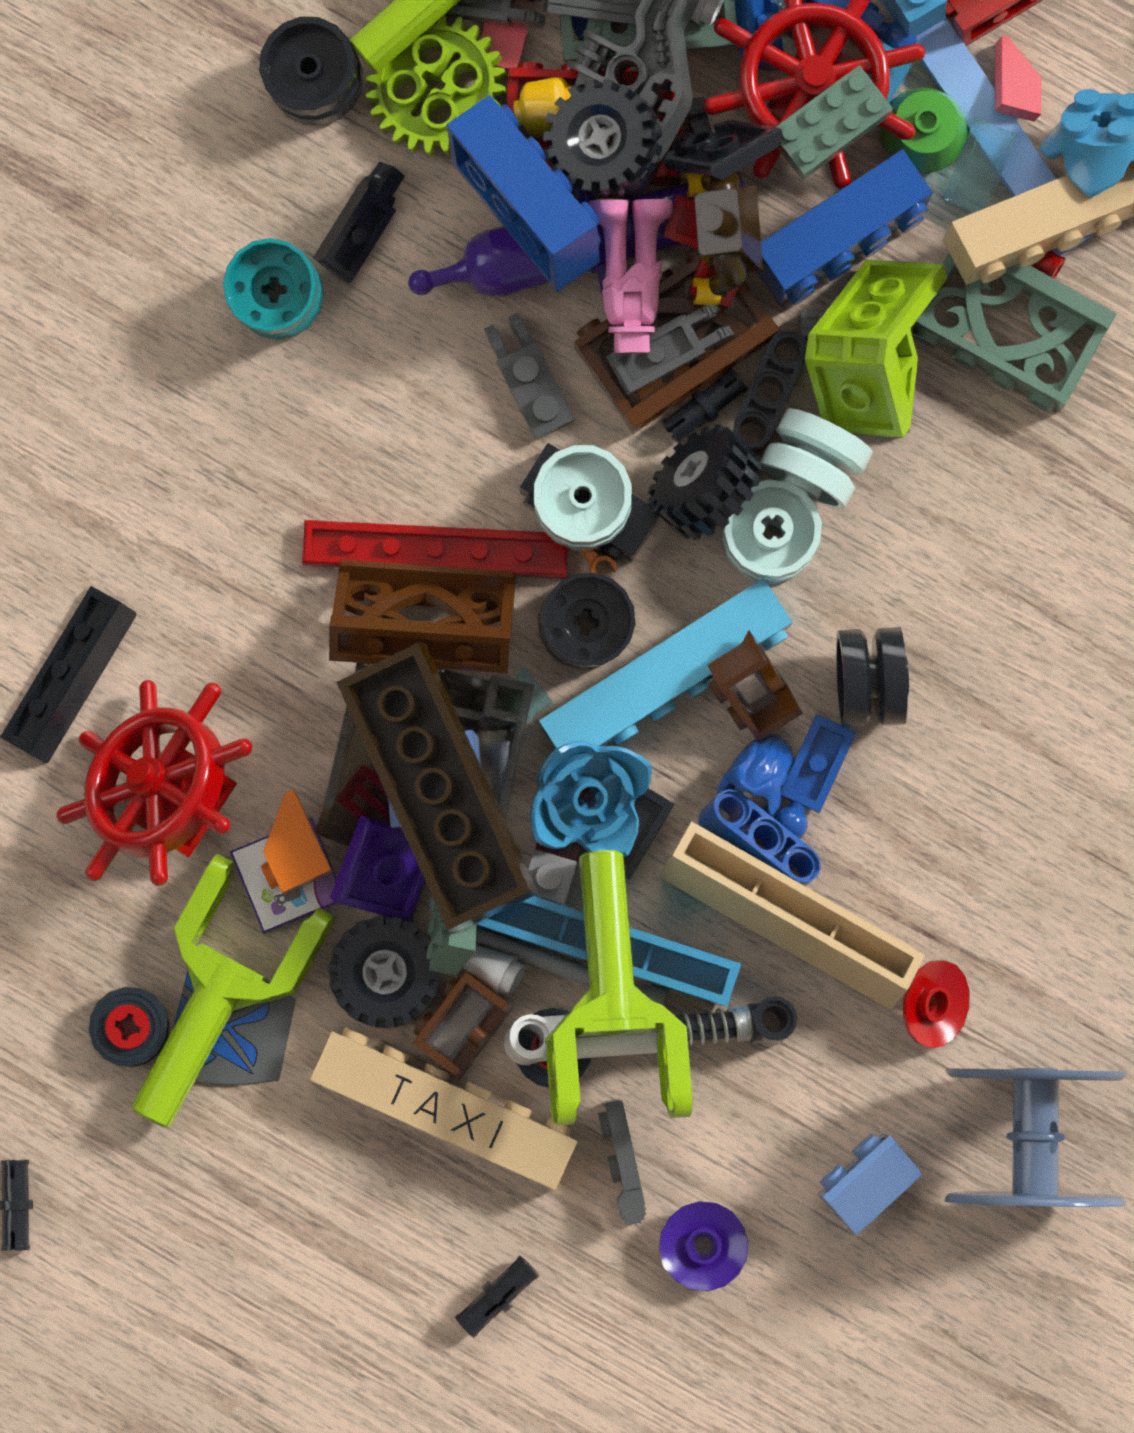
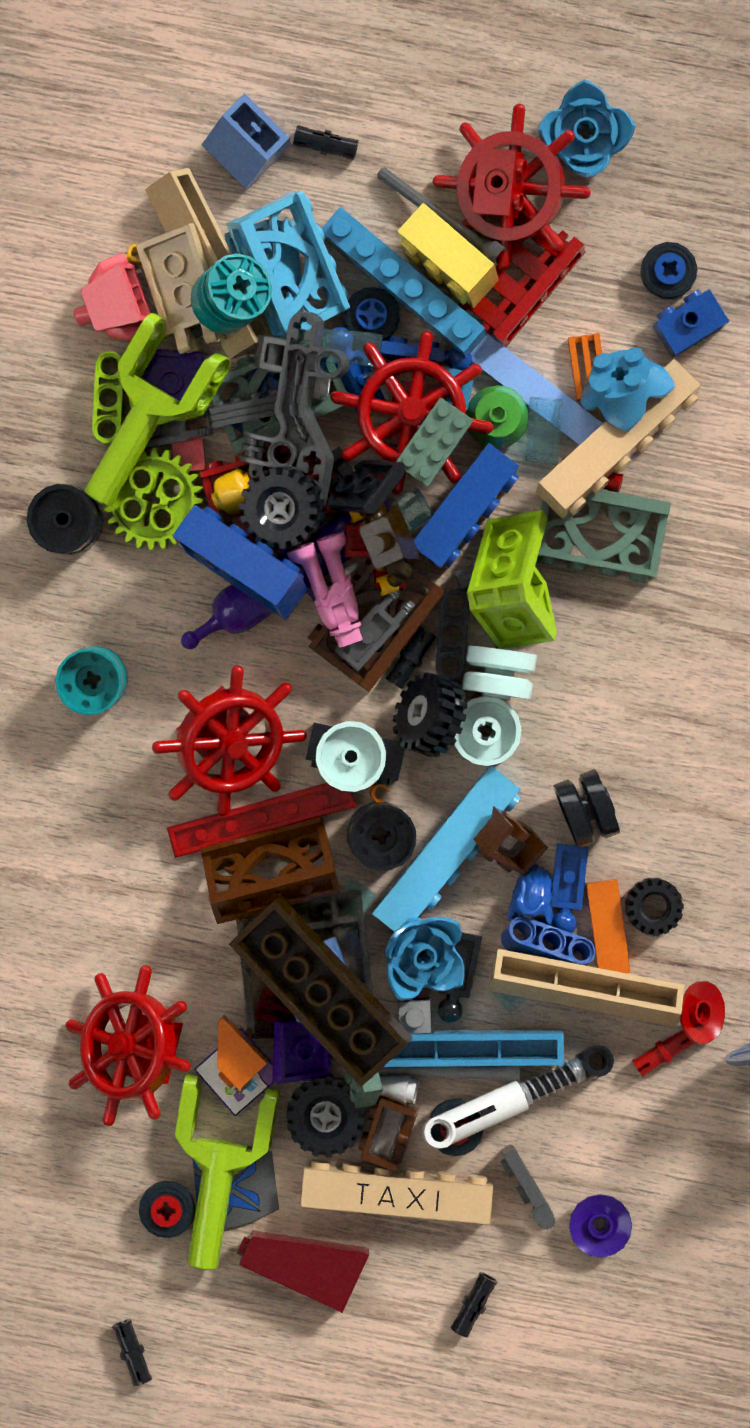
camera: 15 degrees left, 5 degrees up
(69, 675) = (43, 986): black slope -> none
(295, 1170) = (308, 1266): none -> dark red slope
(360, 223) = (134, 611): black hinge -> none
(420, 410) = (219, 730): none -> red piece
(531, 381) = (304, 693): dark grey hinge -> none
(613, 1001) = (486, 1090): lime piece -> none
(775, 205) = (414, 509): none -> clear light blue tile
(848, 844) = (608, 925): none -> orange tile
(865, 1042) = (662, 1053): none -> red pin
(868, 1182) = (695, 1147): medium blue slope -> none
(945, 842) = (667, 920): none -> black tyre
(1015, 83) = (549, 362): coral tile -> none
(1071, 71) = (583, 339): none -> orange tile

